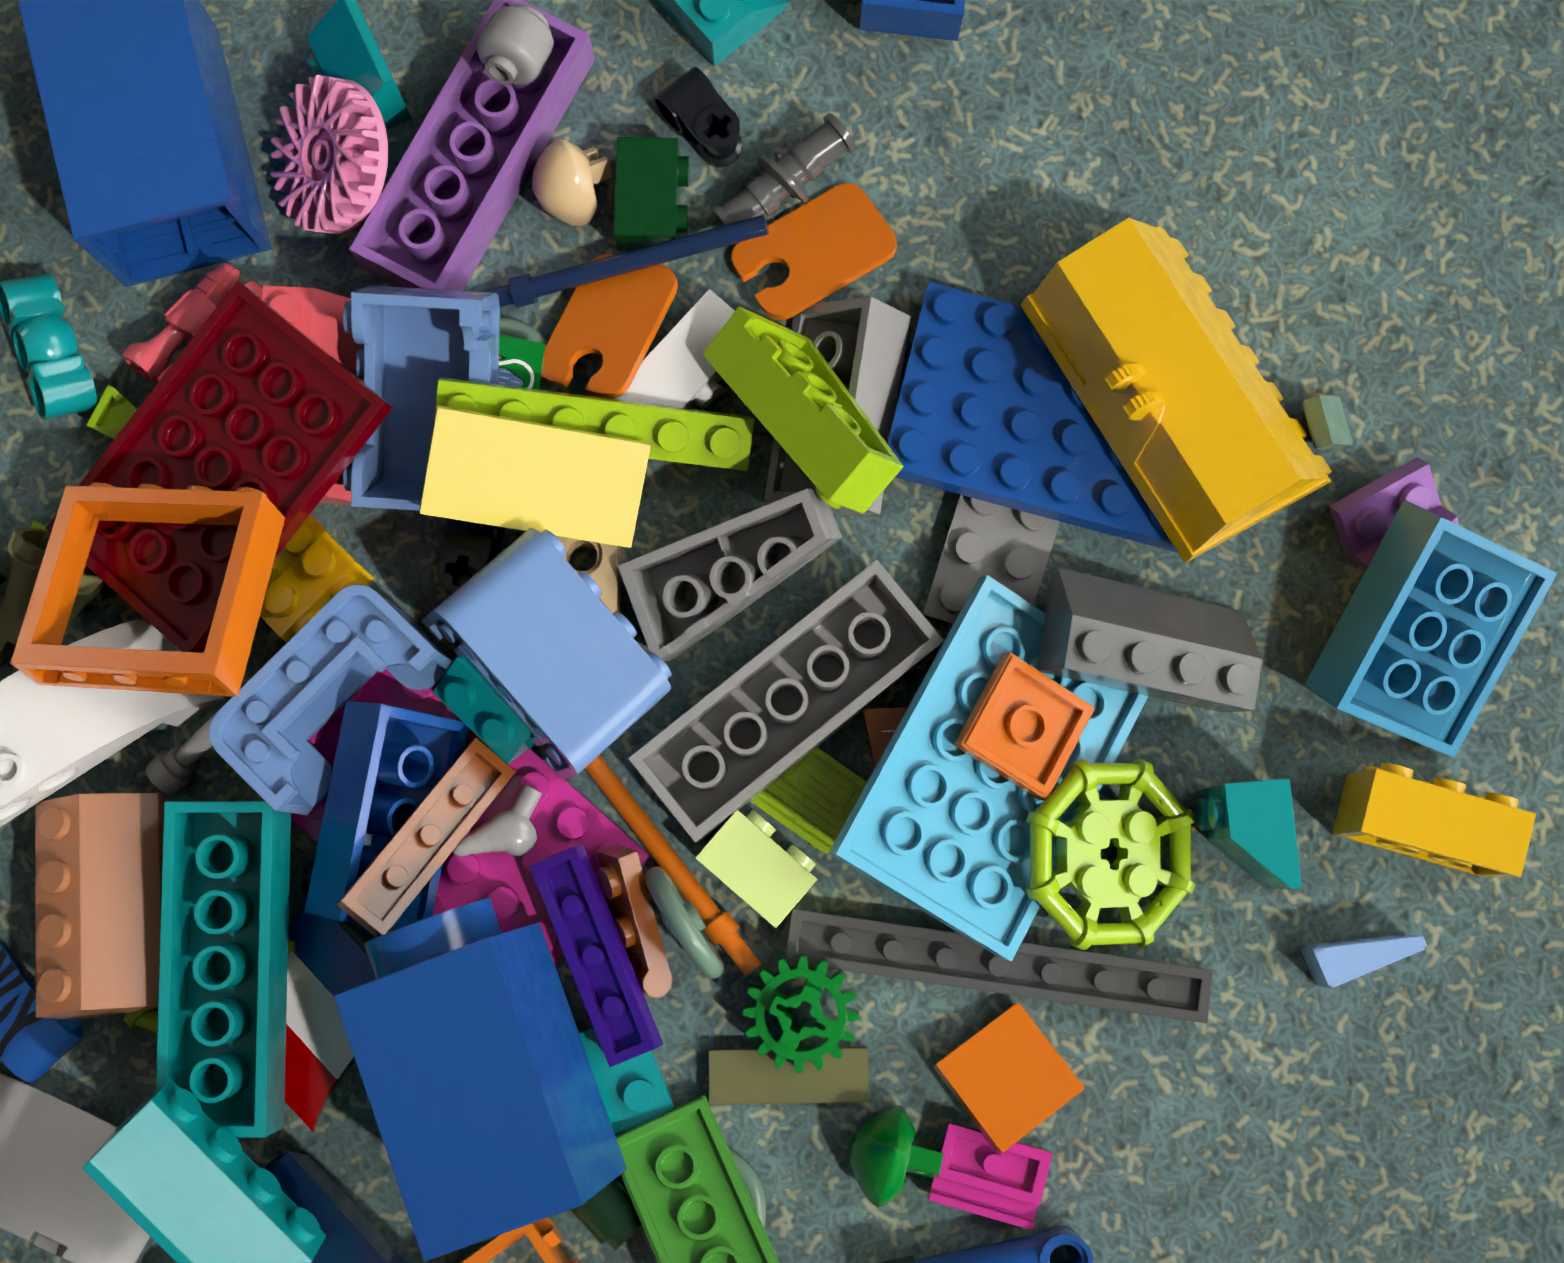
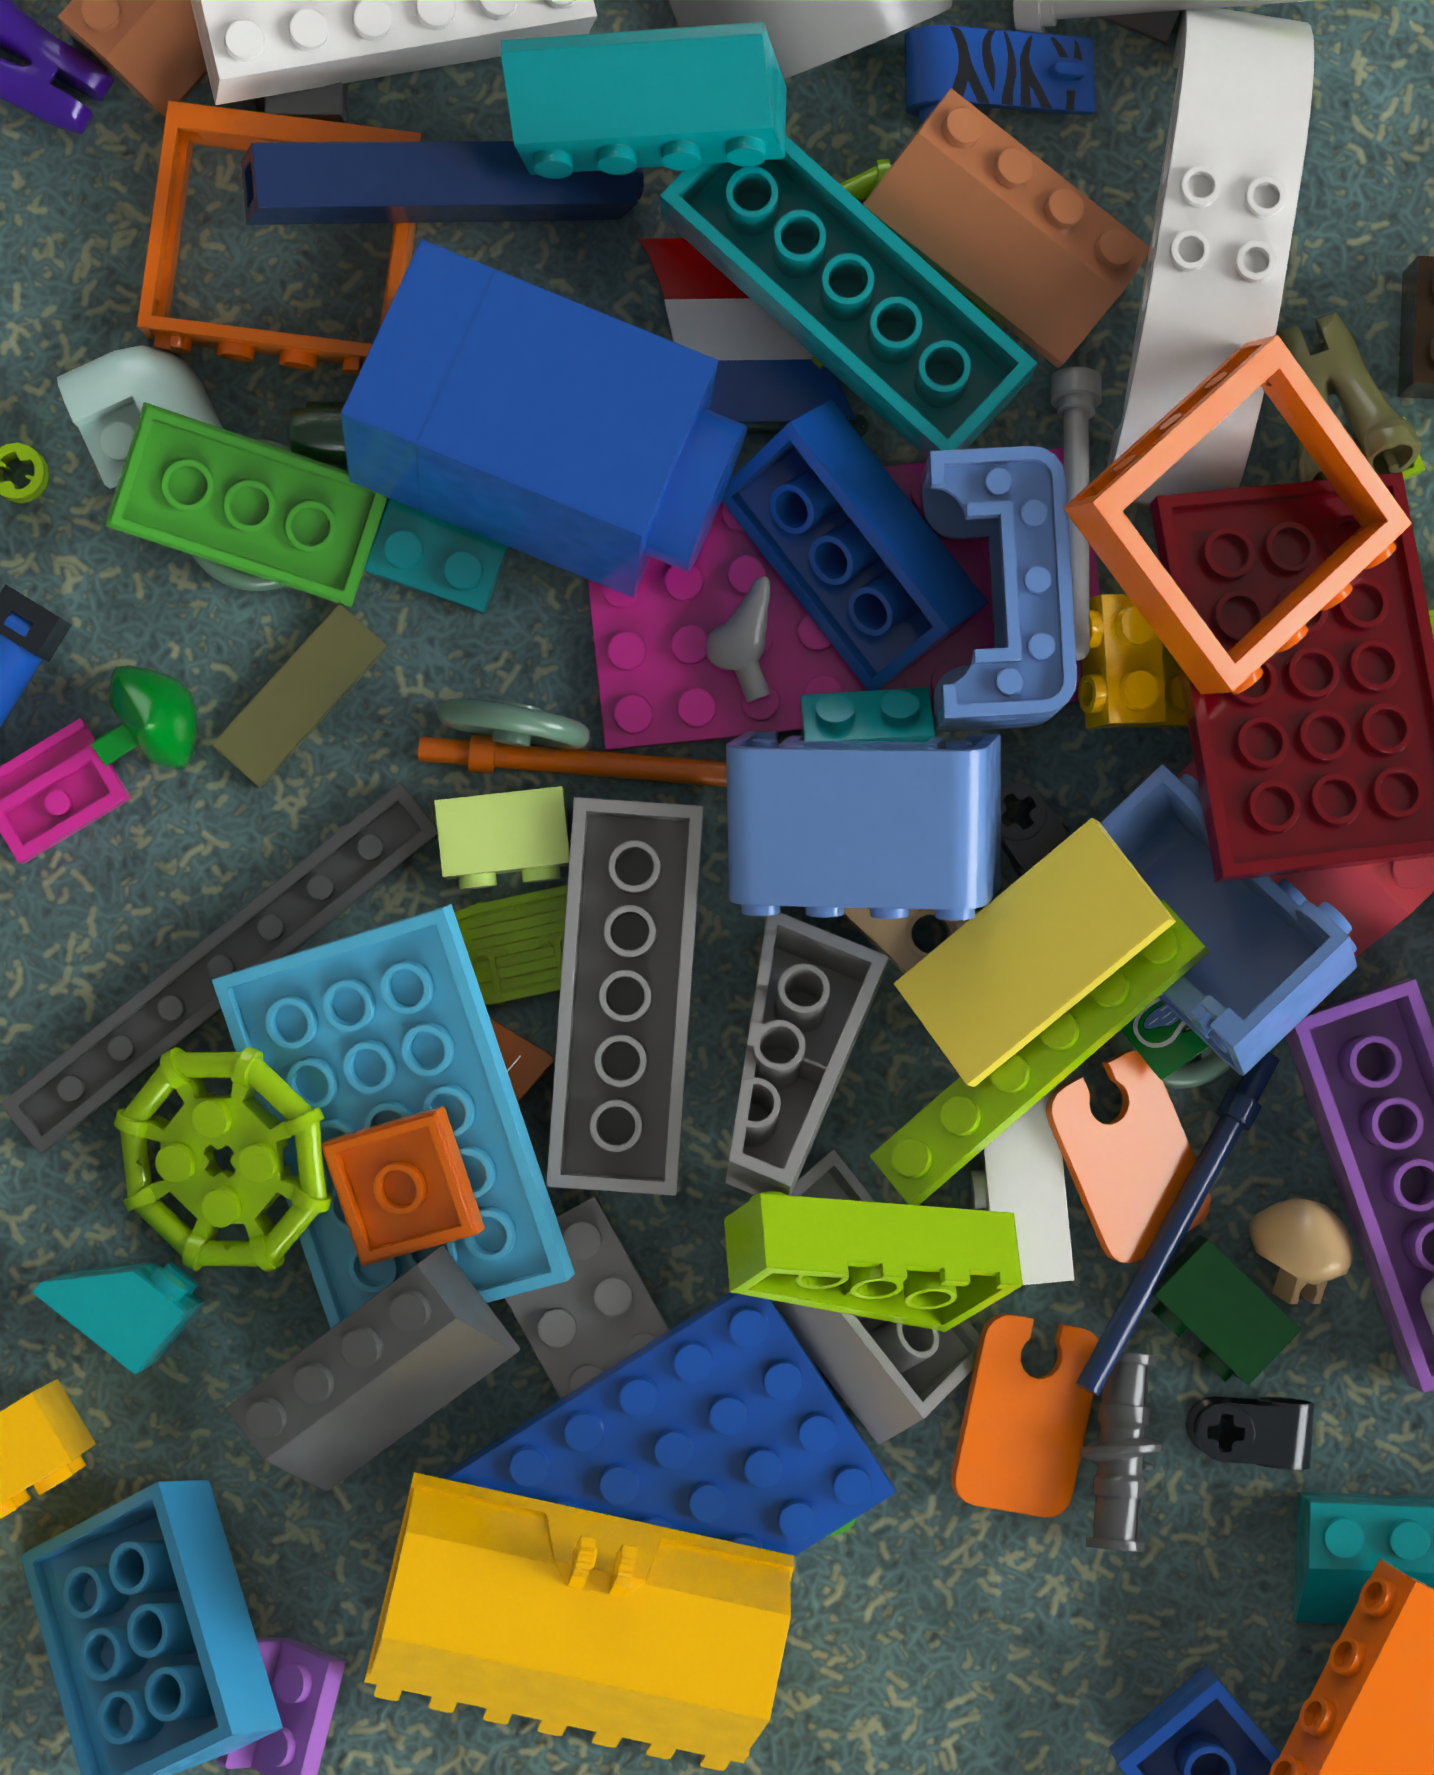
camera: 135 degrees right, 5 degrees up
(426, 838) = (795, 564): plate -> none
(596, 955) = (557, 621): dark purple plate -> none
(625, 886) = (556, 681): dark orange plate -> none
(823, 1023) = (366, 747): green gear -> none
(1008, 1078) = (116, 885): orange tile -> none
(1327, 423) = (422, 1737): sand green tile -> none

